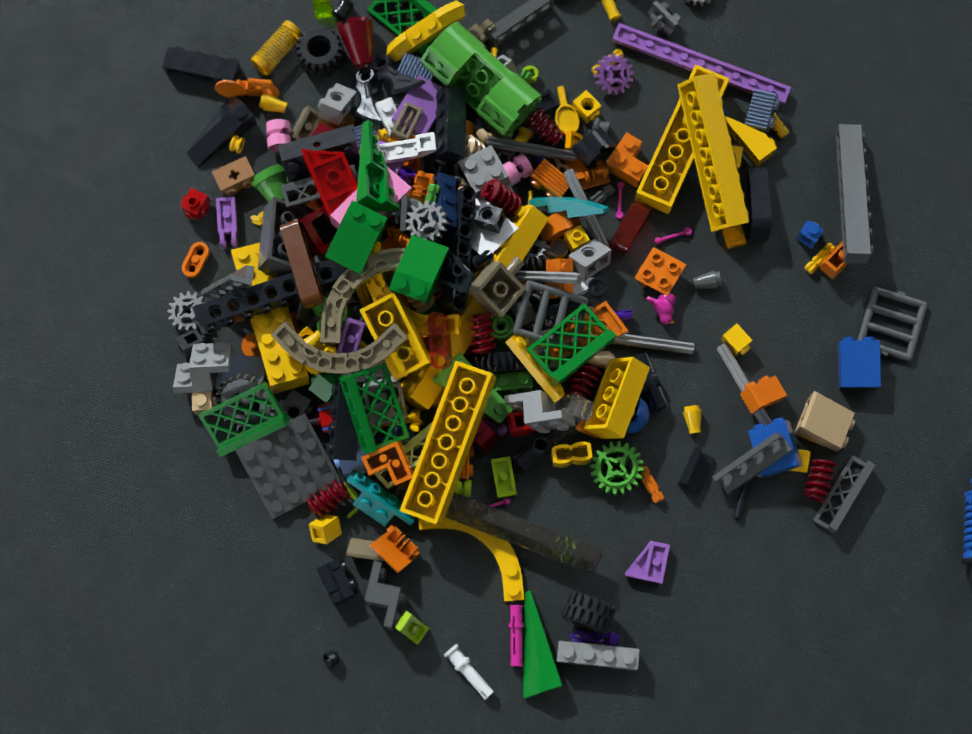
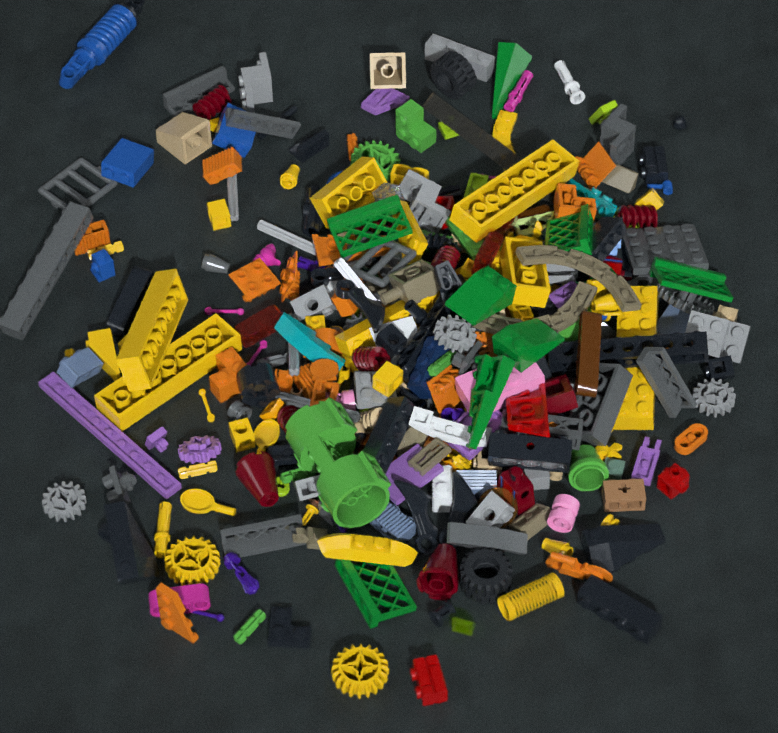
camera: 160 degrees left, 25 degrees down
(254, 204) = (615, 468): none -> sand green plate
(316, 561) = (666, 186): none -> blue hand
(333, 74) = (480, 536): none -> dark grey slope
(471, 168) = (387, 379): none -> yellow brick
(522, 246) = (374, 313): none -> black piece
(541, 181) = (324, 374): none -> orange piece
(544, 58) = (259, 477): none -> dark red cone
(586, 32) = (202, 502): none -> yellow piece
(597, 528) = (413, 128): none -> bright green brick
(624, 120) = (210, 417): none -> yellow hinge
(624, 280) = (290, 279): none -> orange hinge
(656, 73) = (157, 440): none -> medium lavender tile
(663, 598) = (387, 70): none -> tan slope
(788, 516) = (256, 84): none -> light grey bracket

